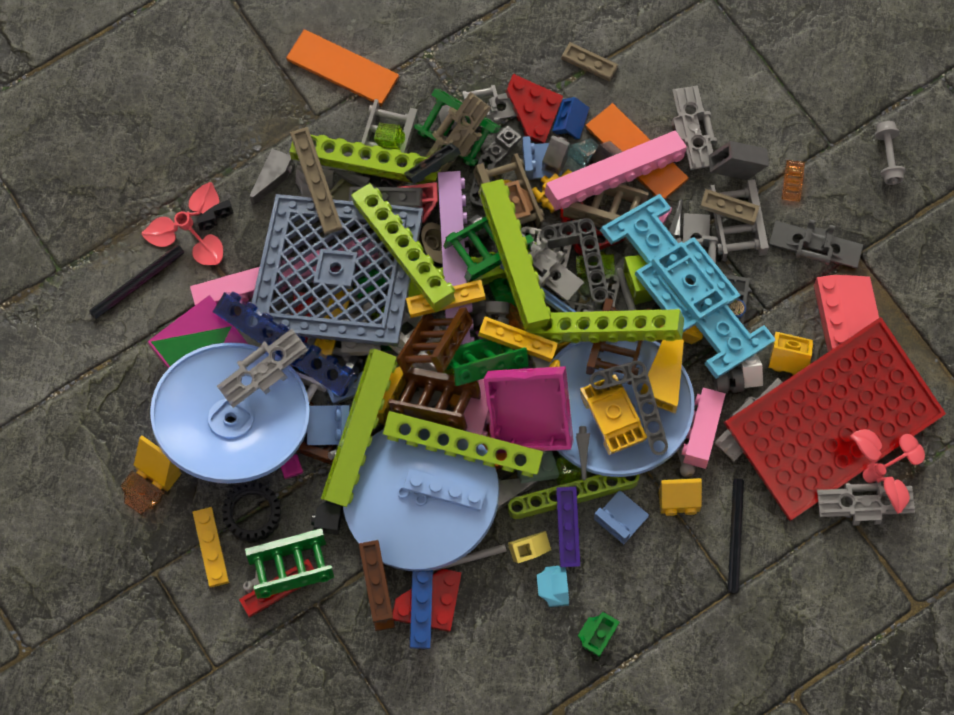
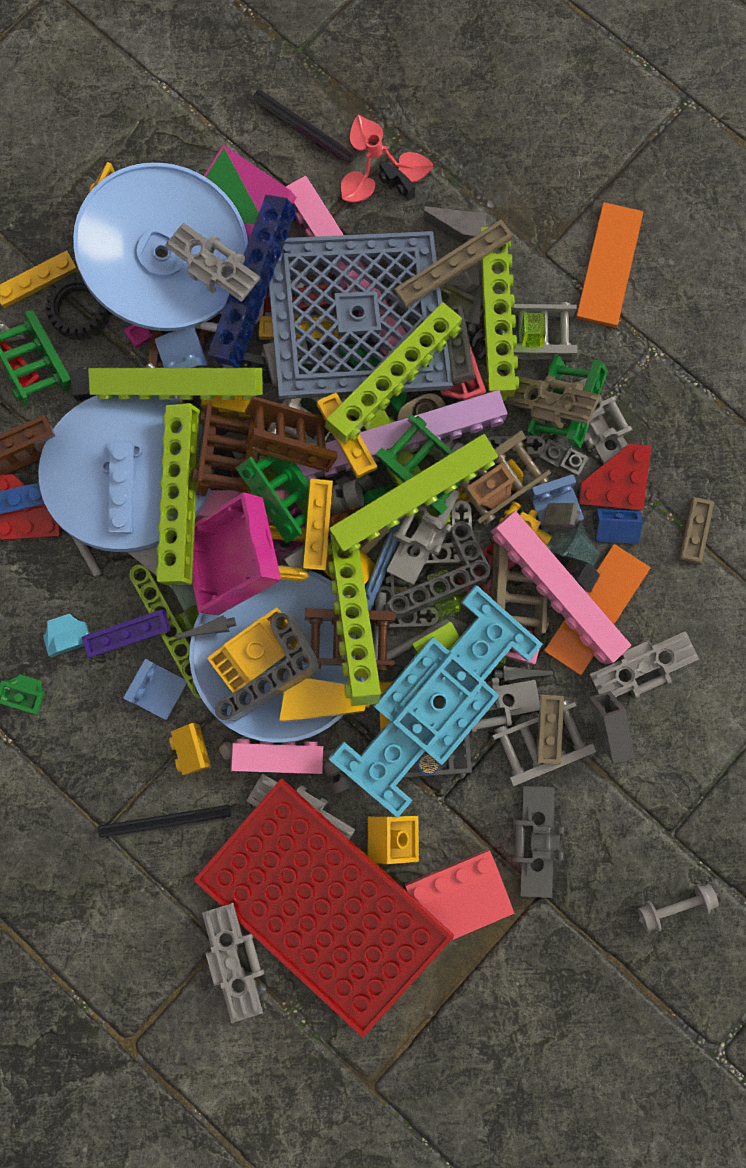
camera: 75 degrees right, 10 degrees up
(140, 493) = (75, 193): clear orange slope -> none
(432, 163) = (505, 380): black plate -> none
(529, 547) = (98, 599): light yellow slope -> none
(752, 372) = (354, 799): white slope -> none
(793, 168) = (629, 793): clear orange slope -> none
(870, 445) = (287, 954): coral plant -> none

